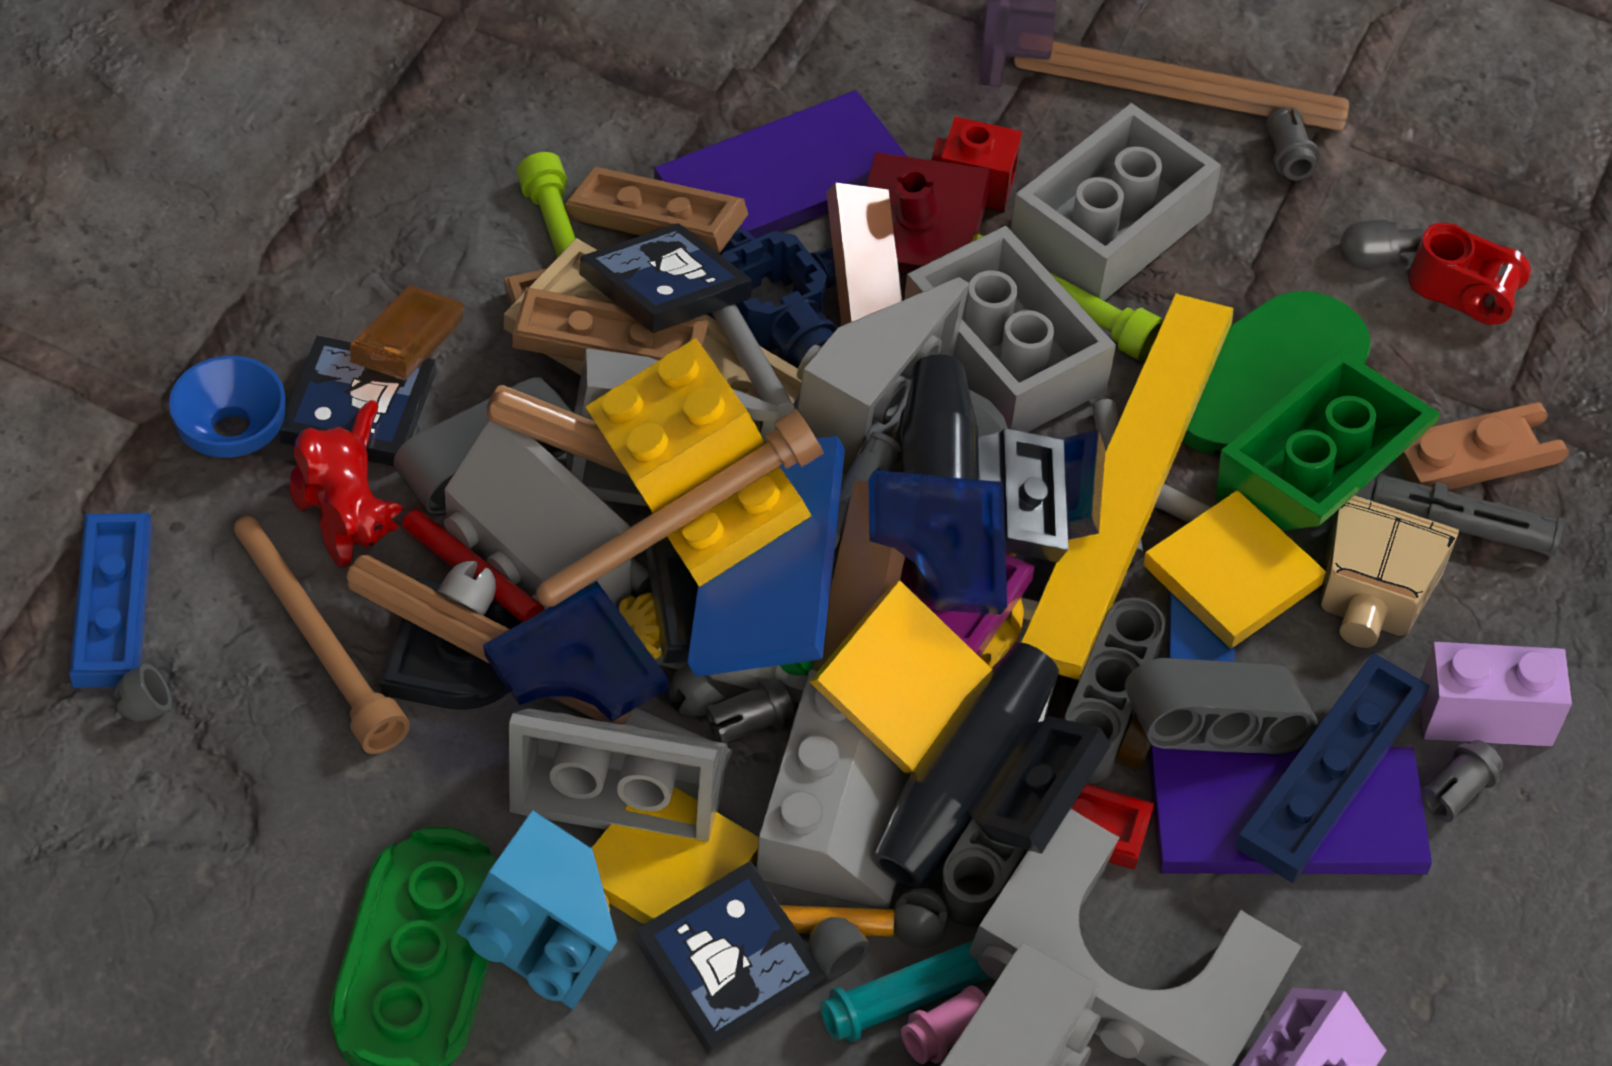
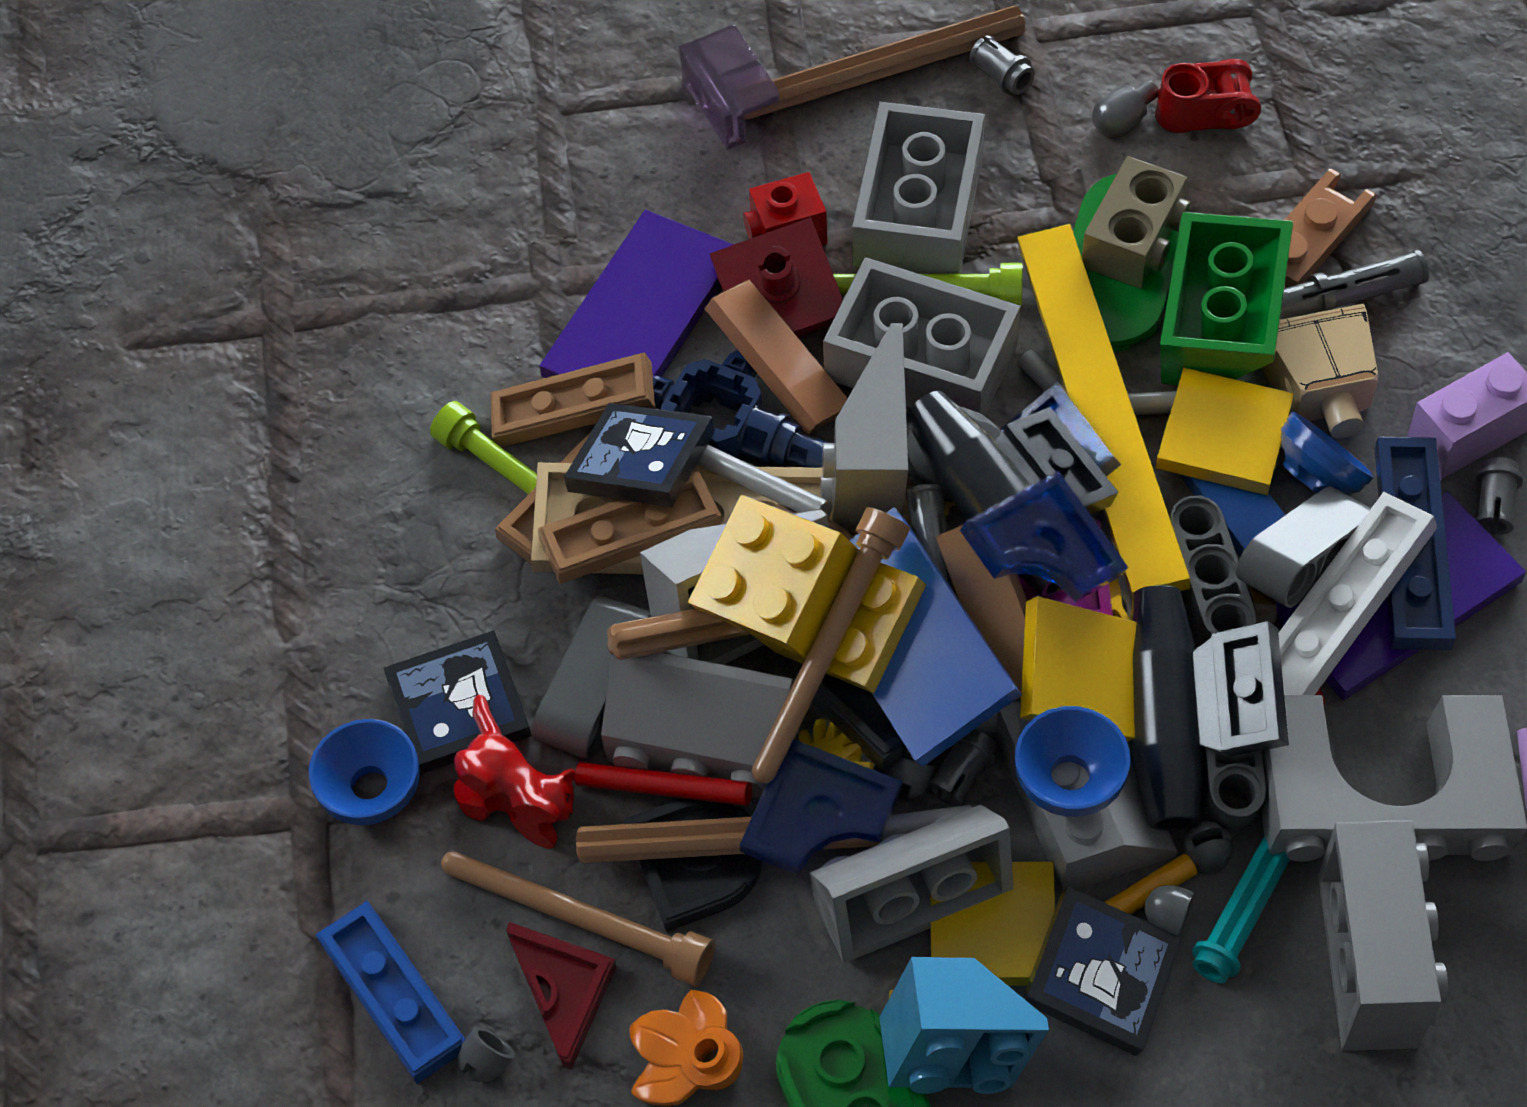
camera: 25 degrees left, 5 degrees up
(256, 684) = (565, 985): none -> dark red tile
(312, 797) = (677, 1045): none -> orange plate
(406, 332) = (455, 621): clear orange tile -> none
(469, 592) = (683, 808): light grey hinge -> none
(827, 719) = (1075, 737): none -> blue piece
(934, 1032) = (1289, 932): bright pink pin -> none
(1217, 769) = (1350, 592): none -> white plate
(1292, 335) = (1135, 222): none -> dark tan brick
(1308, 642) = (1320, 459): none -> blue piece

